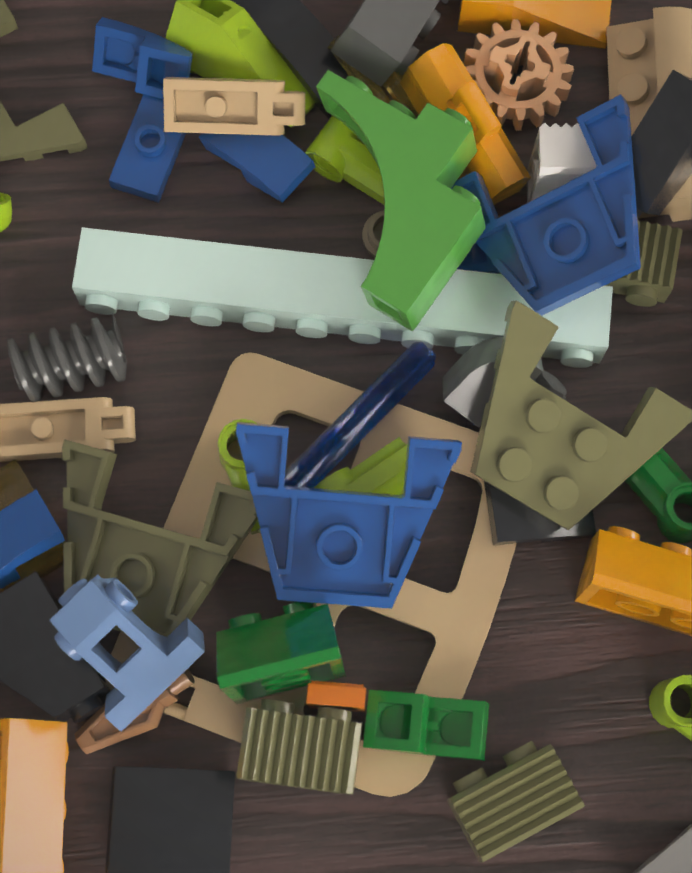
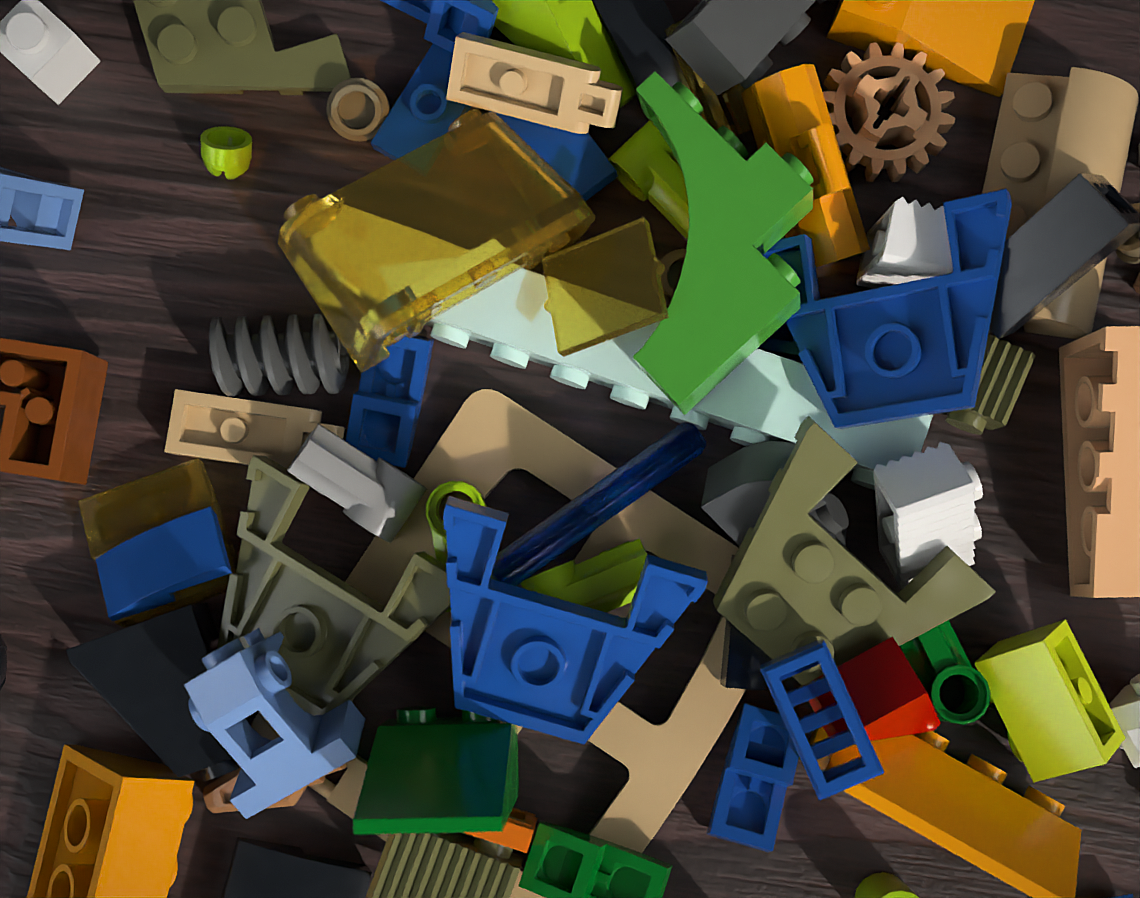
camera: 15 degrees right, 10 degrees up
(92, 157) = (357, 109): none -> dark tan plate
(165, 377) = (390, 402): none -> blue slope
(169, 449) = (368, 489): none -> light grey piece
(174, 233) = (429, 232): none -> clear yellow windscreen
(325, 242) = (604, 287): none -> clear yellow piece
(542, 621) = (754, 780): none -> blue slope
(551, 495) = (848, 773): none -> blue slope
(621, 517) = (884, 694): none -> red slope
(622, 361) = (925, 507): none -> white brick

